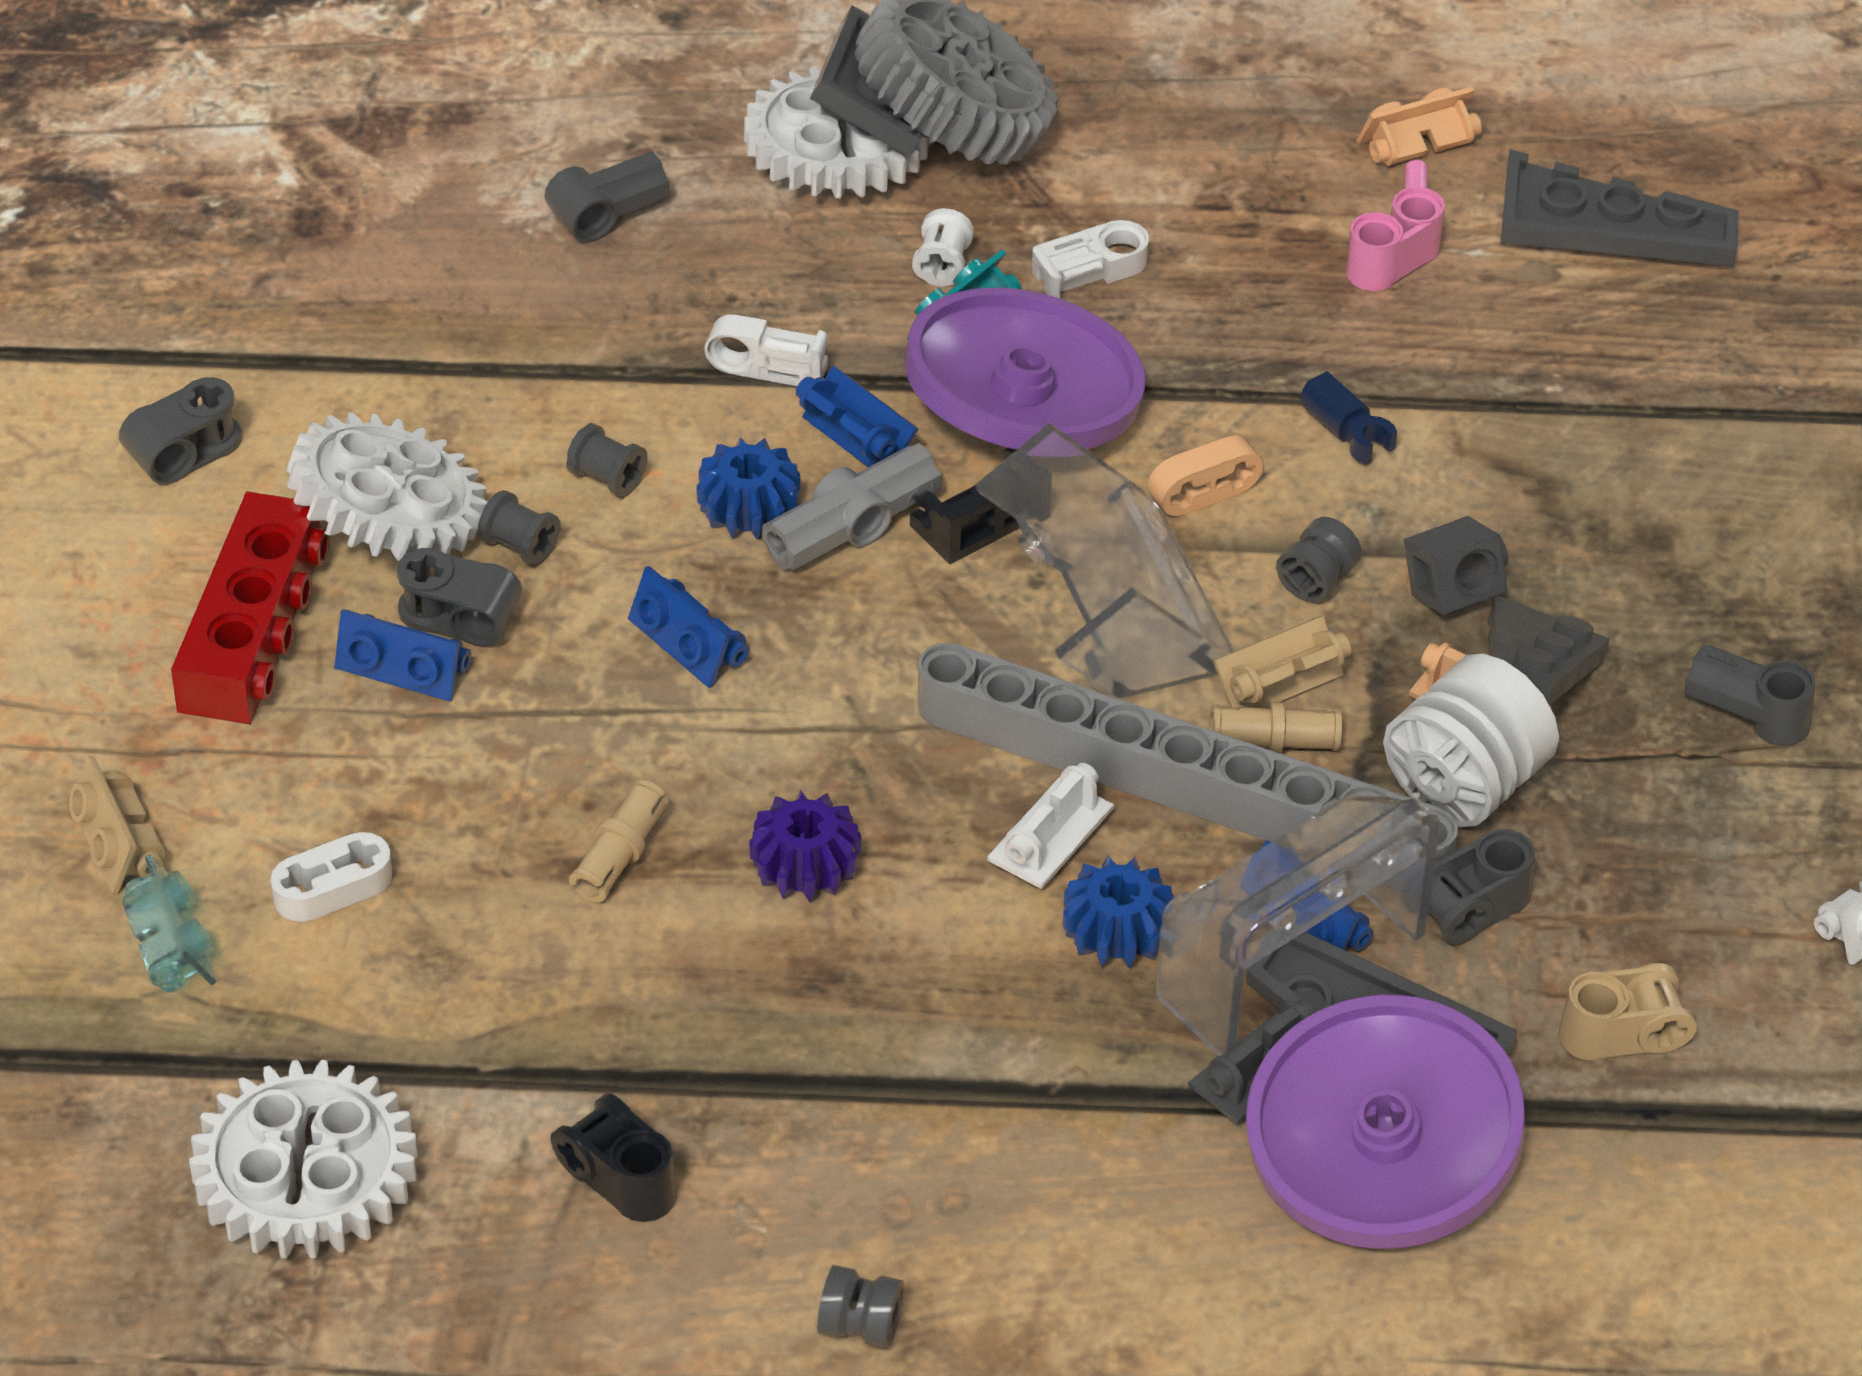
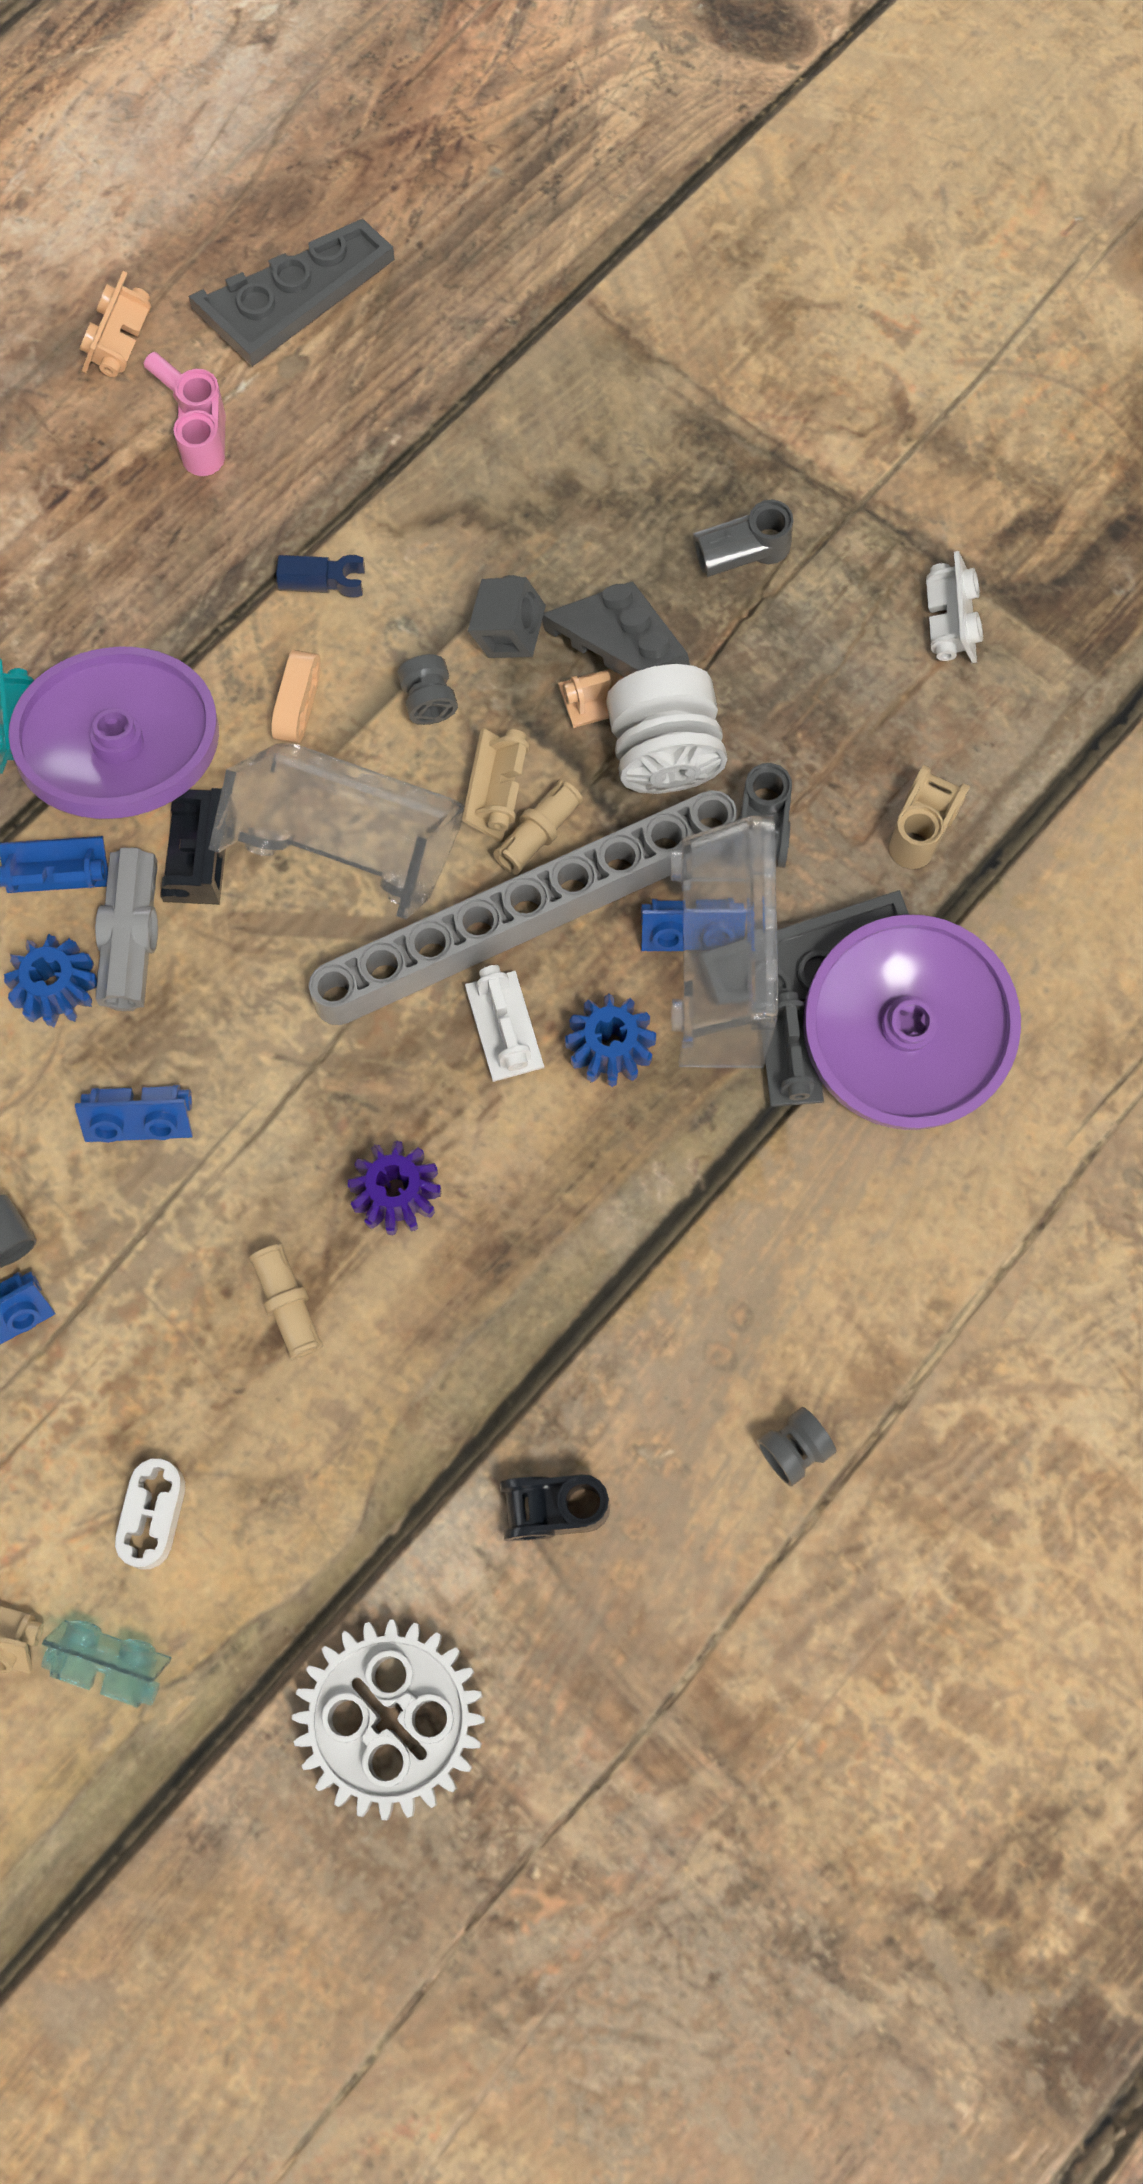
camera: 50 degrees left, 25 degrees up
(1086, 256) = (36, 611): white piece -> none

